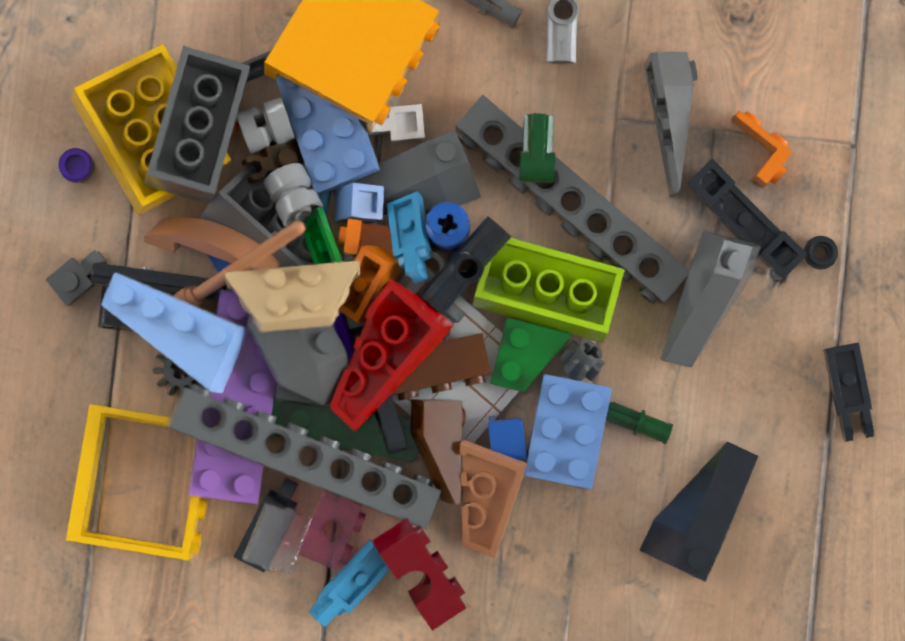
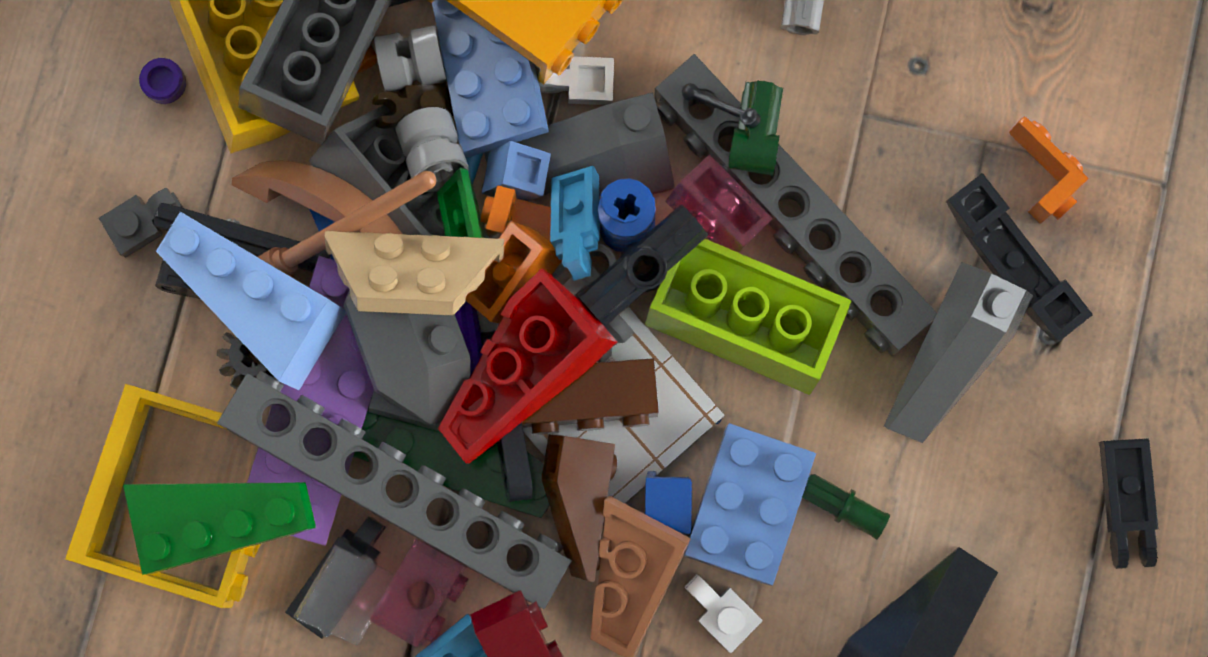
camera: 10 degrees right, 5 degrees down
(165, 498) = (206, 520): none -> green wing
(516, 210) = (720, 205): none -> clear pink brick
(525, 353) = (706, 395): green wing -> none
(529, 143) = (748, 117): none -> black hinge
(560, 515) = (725, 615): none -> white plate
(582, 360) = (780, 413): dark grey gear -> none
(671, 91) = (937, 84): dark grey wedge -> none
(830, 248) = (1120, 309): black plate -> none

